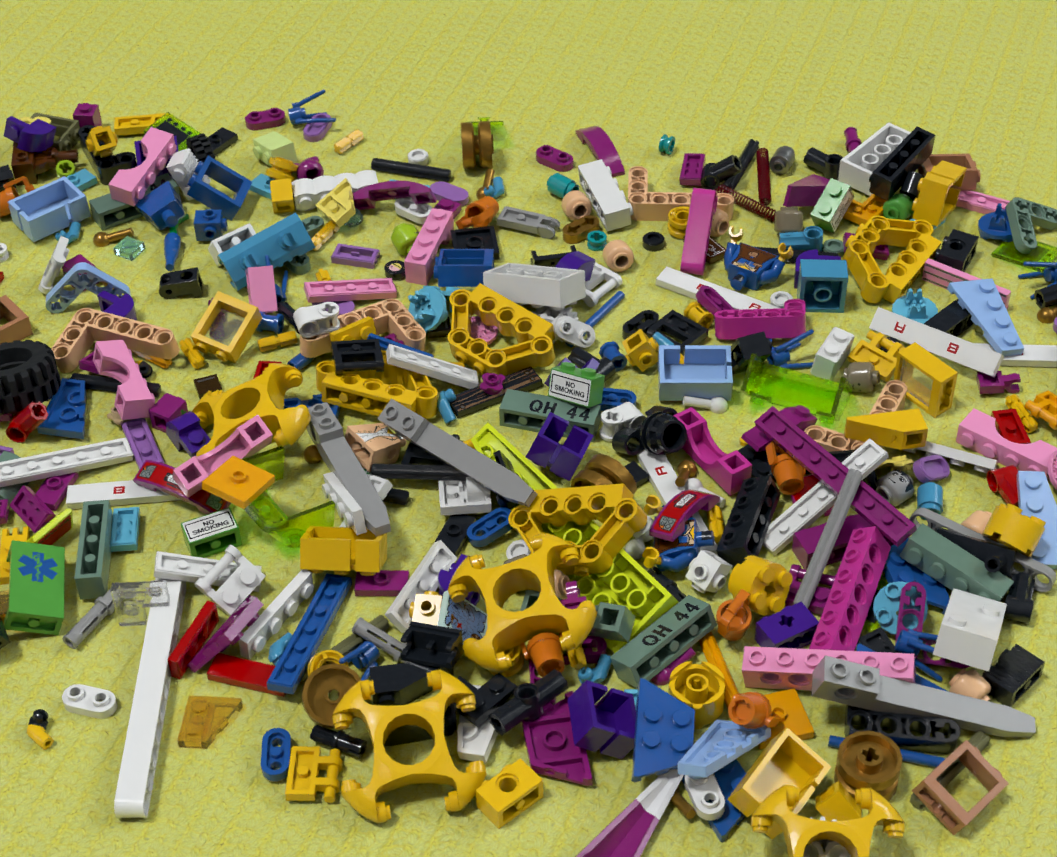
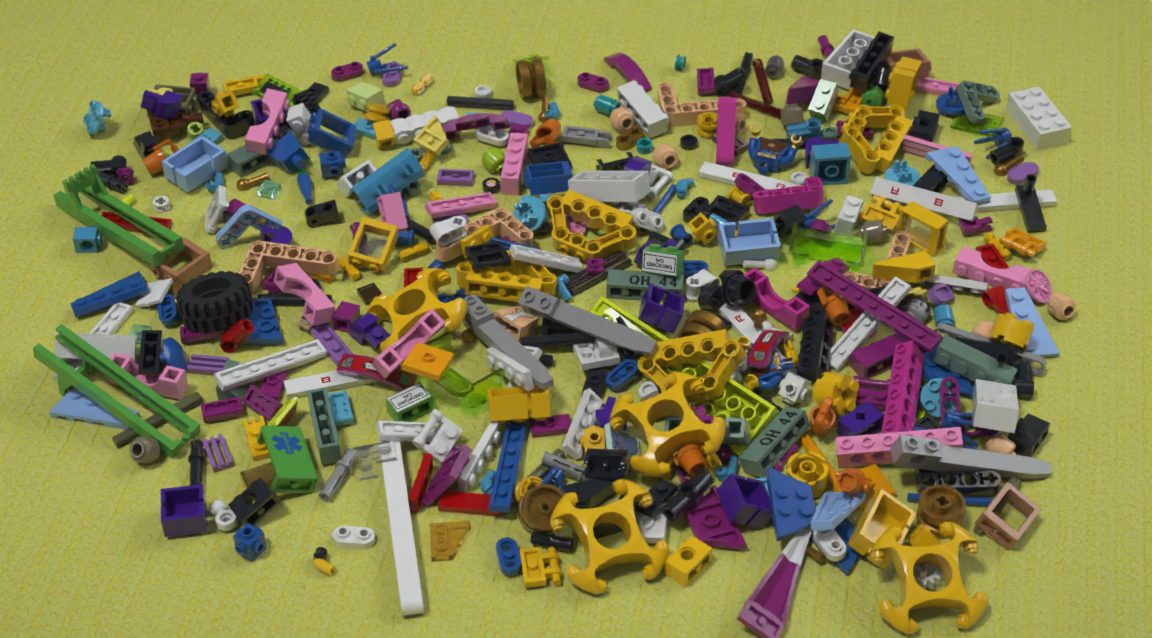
camera: 10 degrees left, 0 degrees up
(630, 293) = (682, 185): none -> dark azure arm
(791, 362) = (820, 225): none -> magenta plate
(828, 537) = (879, 352): light grey axle -> none

